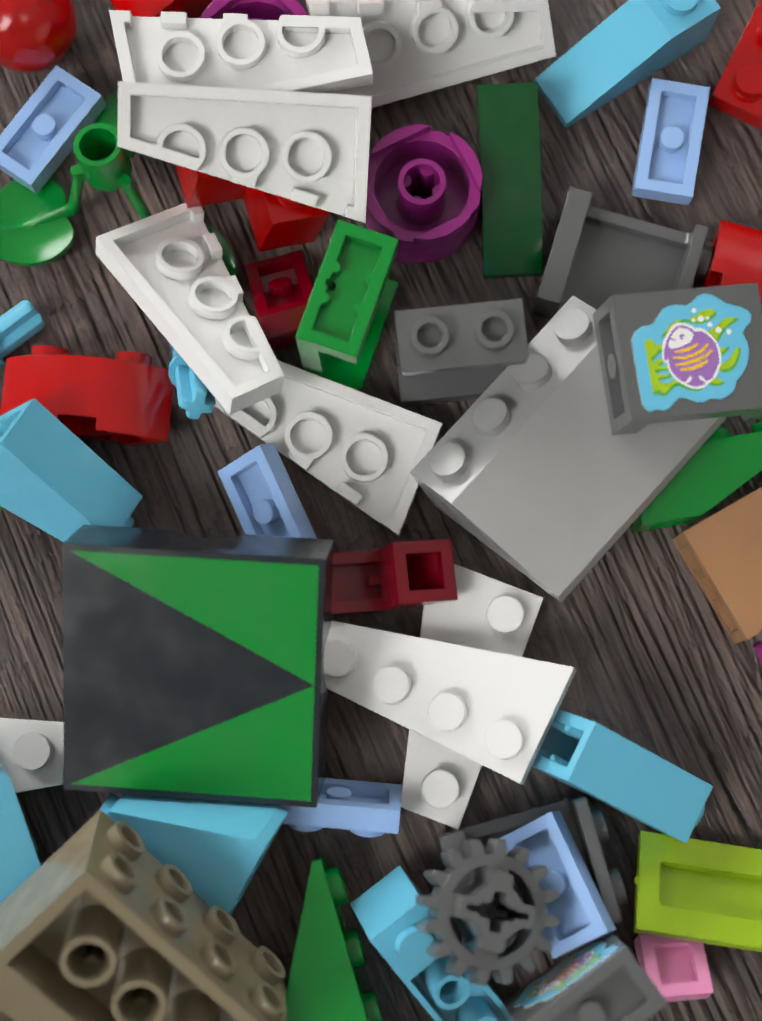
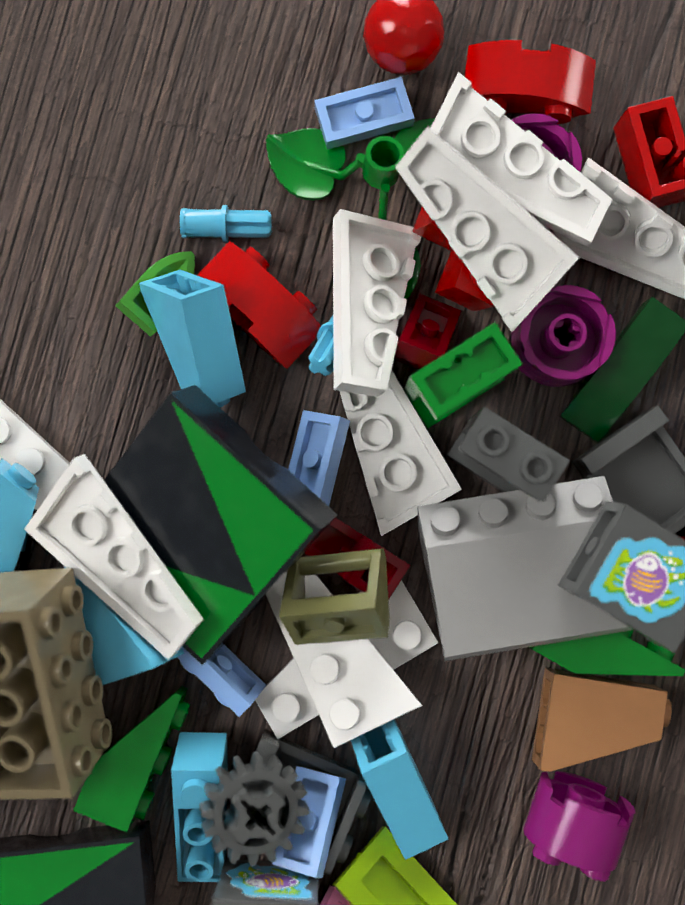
camera: 30 degrees right, 5 degrees up
(132, 766) = (109, 554): none -> white wing
(415, 641) = (337, 616): none -> olive tile

